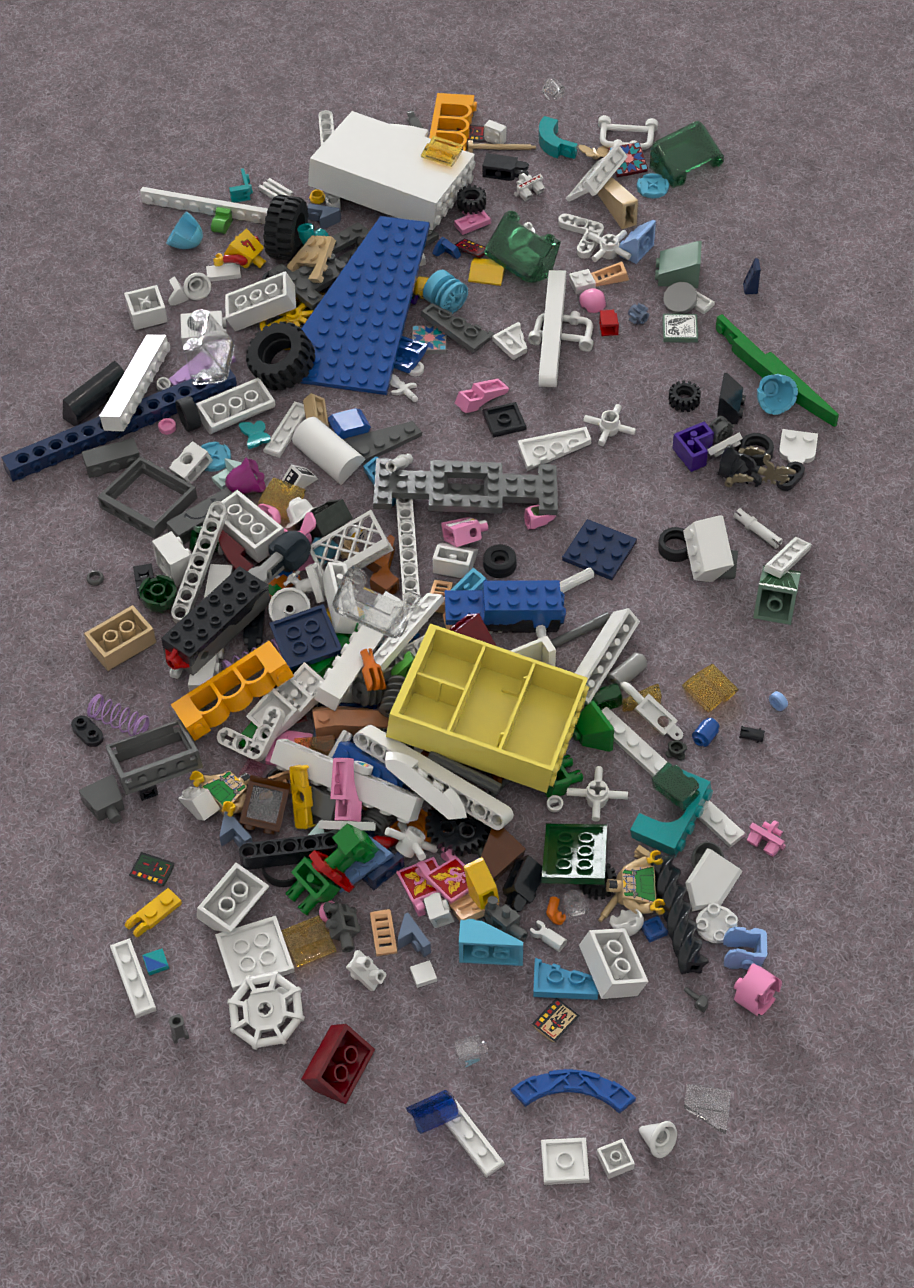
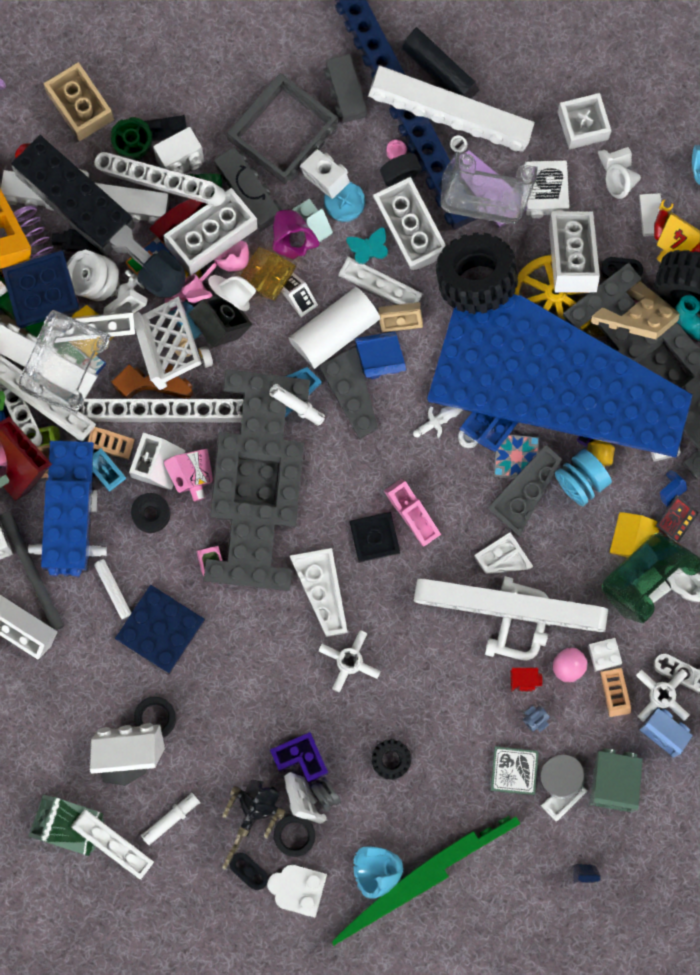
camera: 90 degrees right, 25 degrees up
(95, 582) = (176, 83): dark grey piece -> none
(731, 399) = (370, 813): black slope -> none

